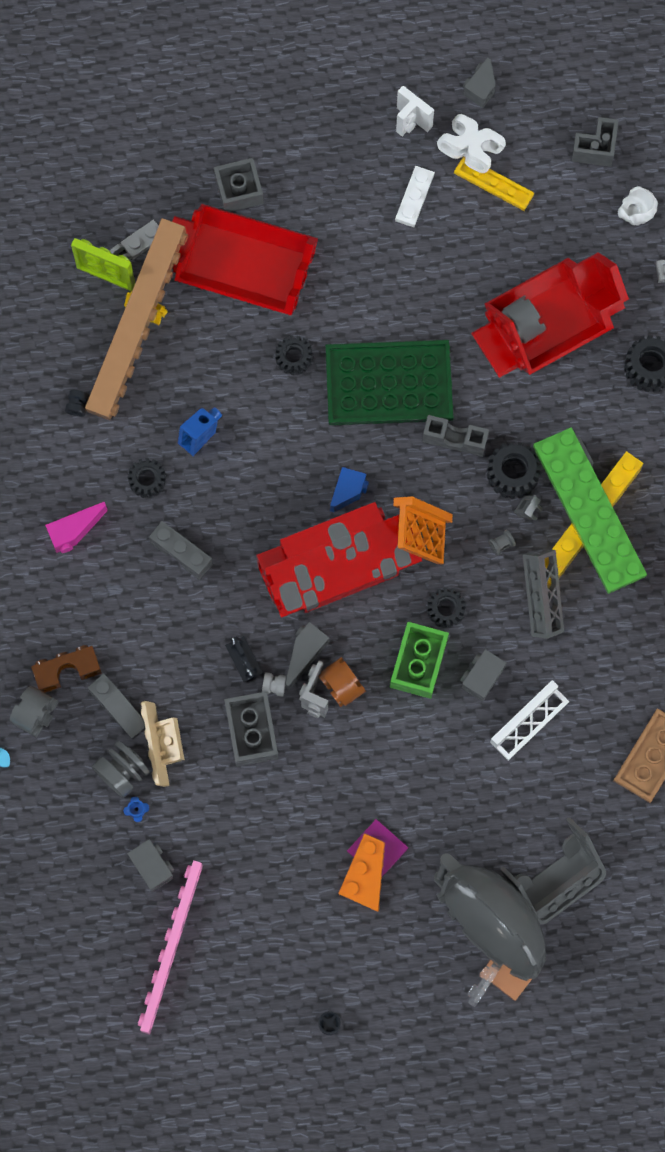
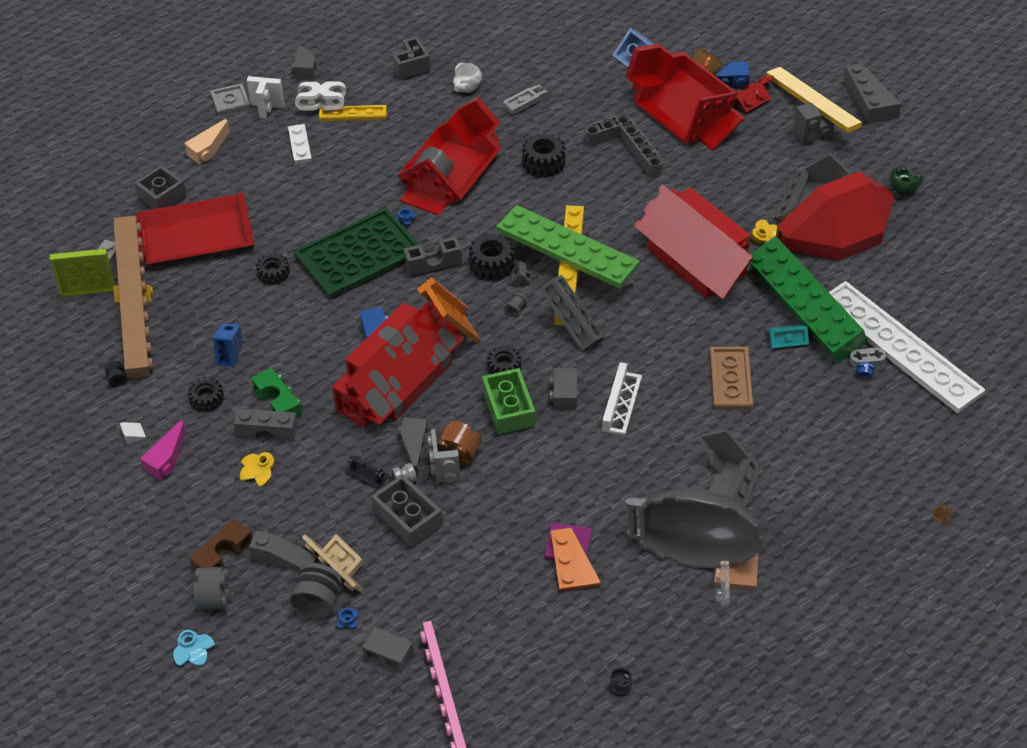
camera: 30 degrees left, 25 degrees down
(58, 482) = (132, 432): none -> white slope
(145, 593) = (256, 469): none -> yellow plate
(210, 502) = (271, 384): none -> green arch
(318, 144) = (206, 144): none -> light nougat slope
(379, 88) = (230, 99): none -> light grey tile
(464, 355) = (405, 216): none -> blue plate

